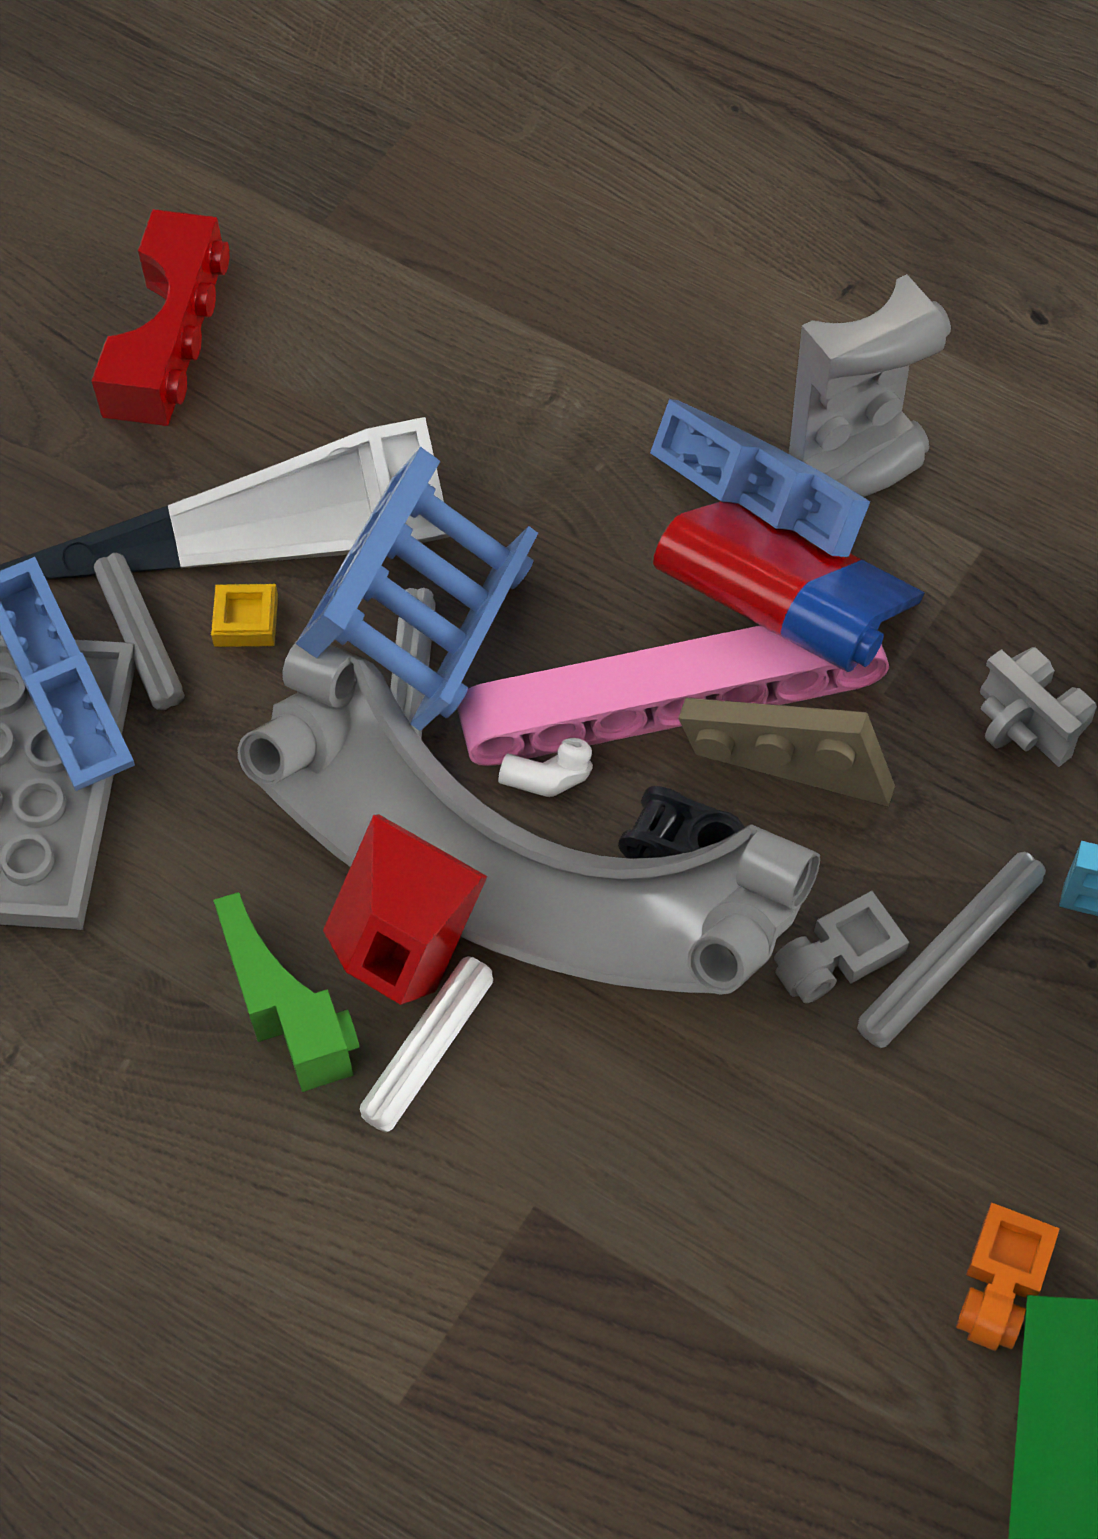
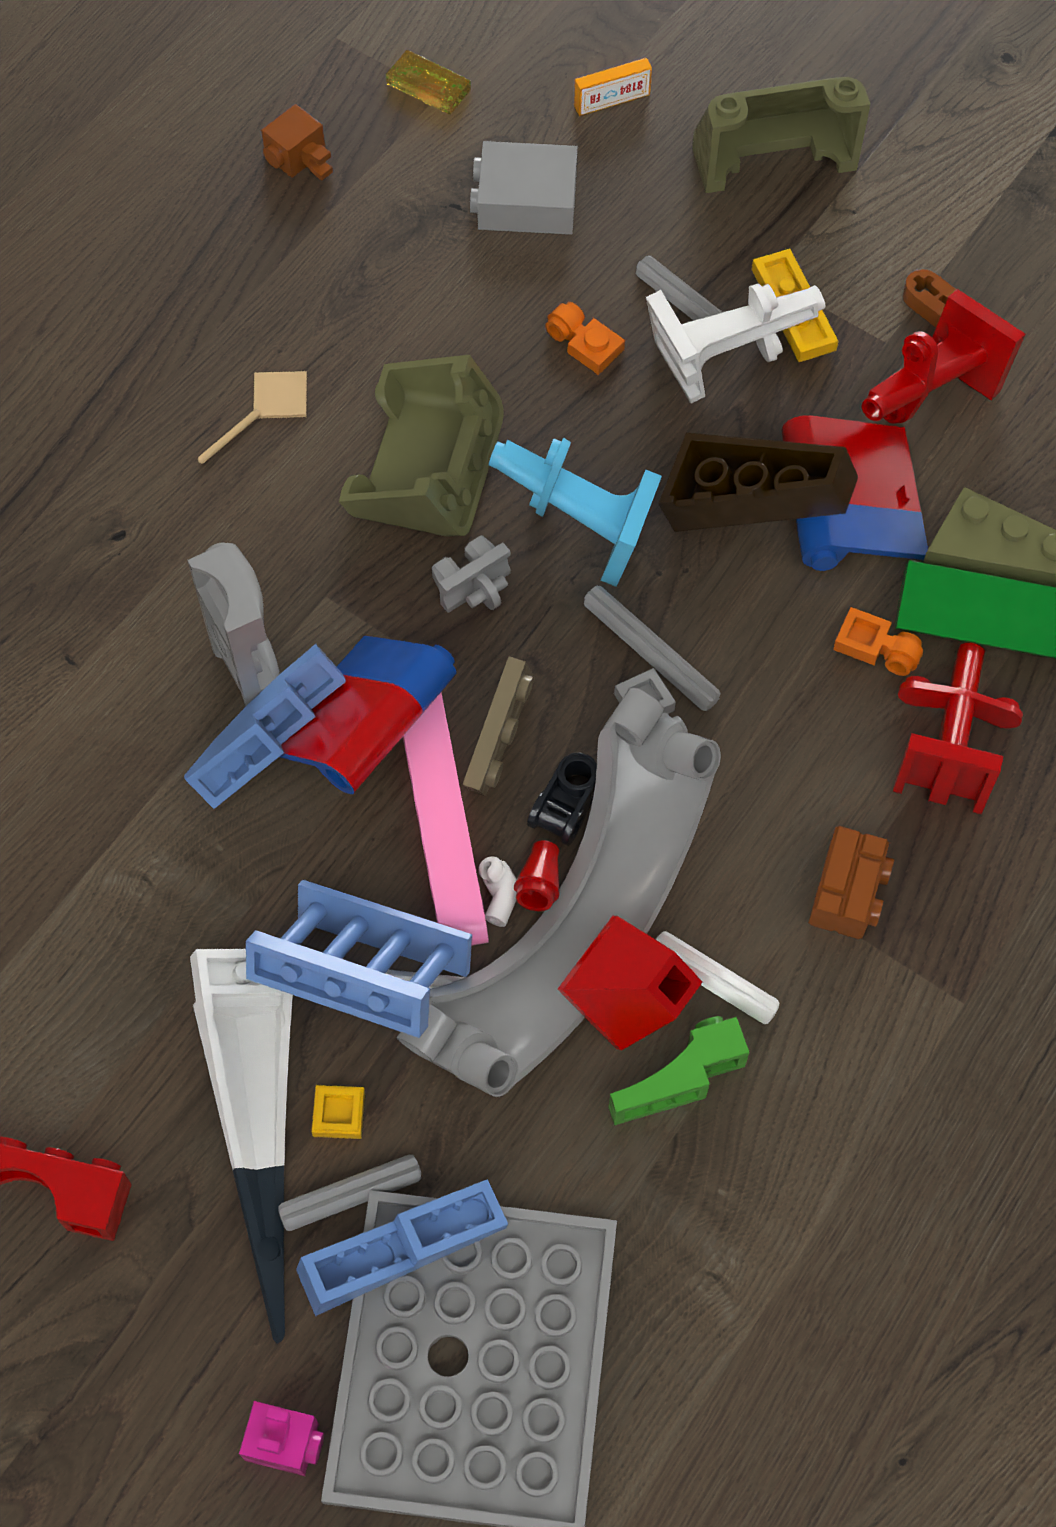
camera: 90 degrees left, 5 degrees up
(565, 811) = (539, 879): none -> red cone
(574, 1223) = (850, 883): none -> dark orange brick
(809, 1374) = (947, 762): none -> red piece

